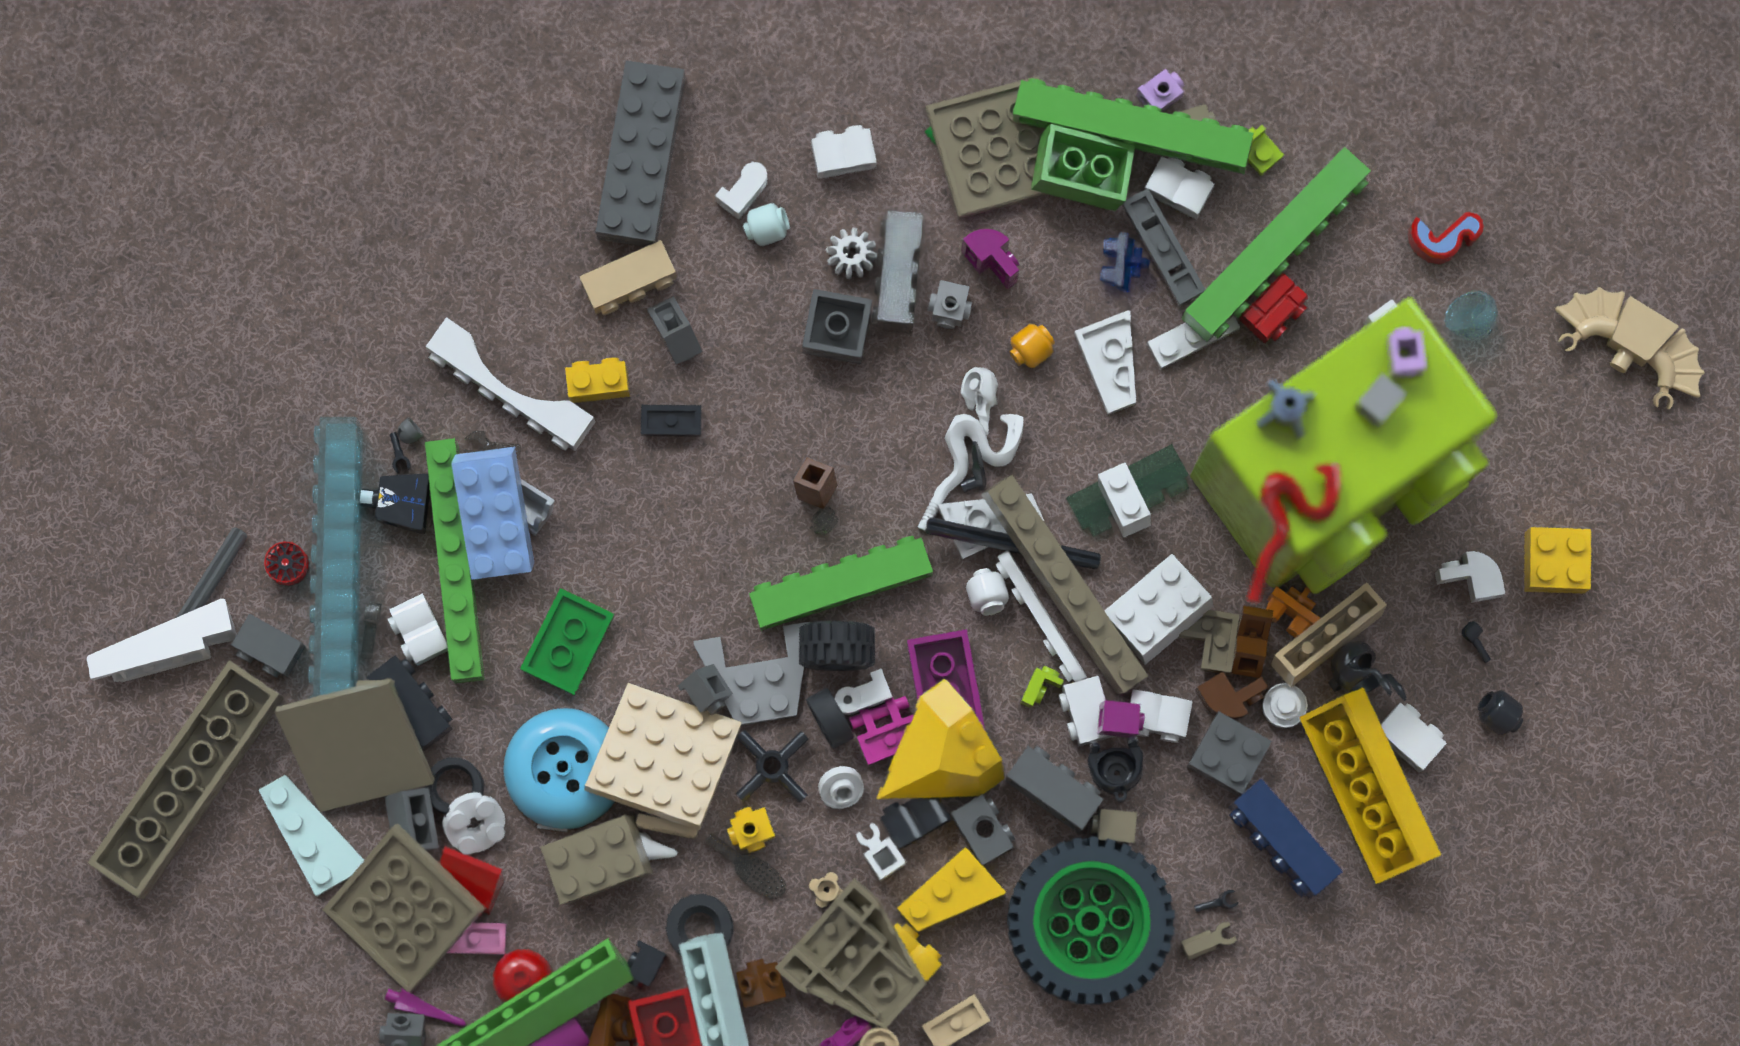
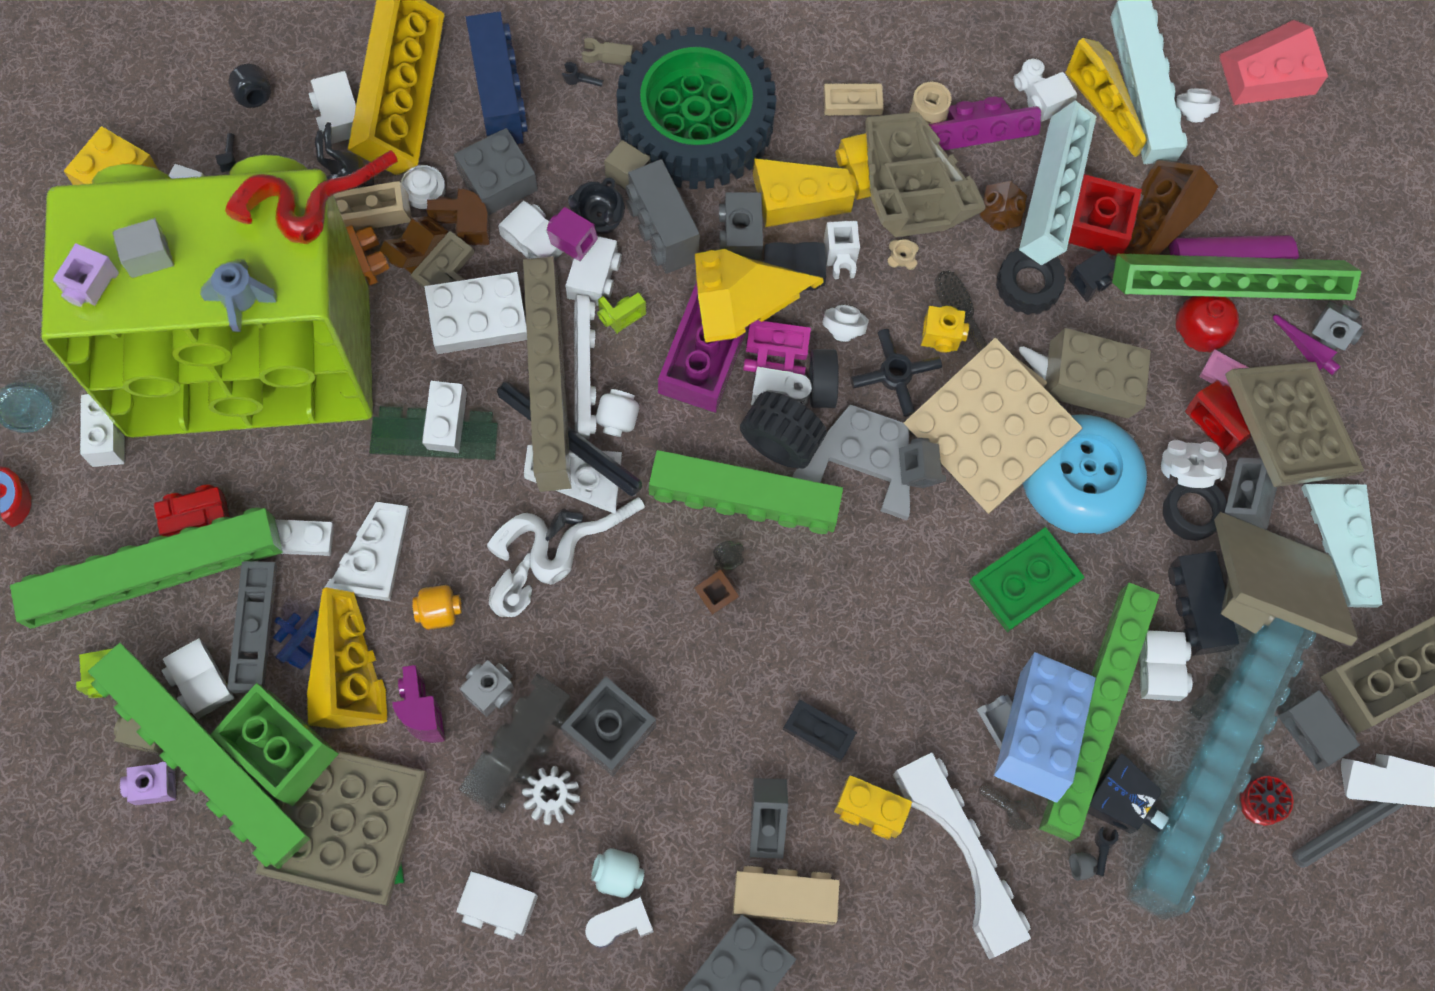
camera: 155 degrees left, 10 degrees down
(1069, 252) = (342, 675): none -> yellow wedge

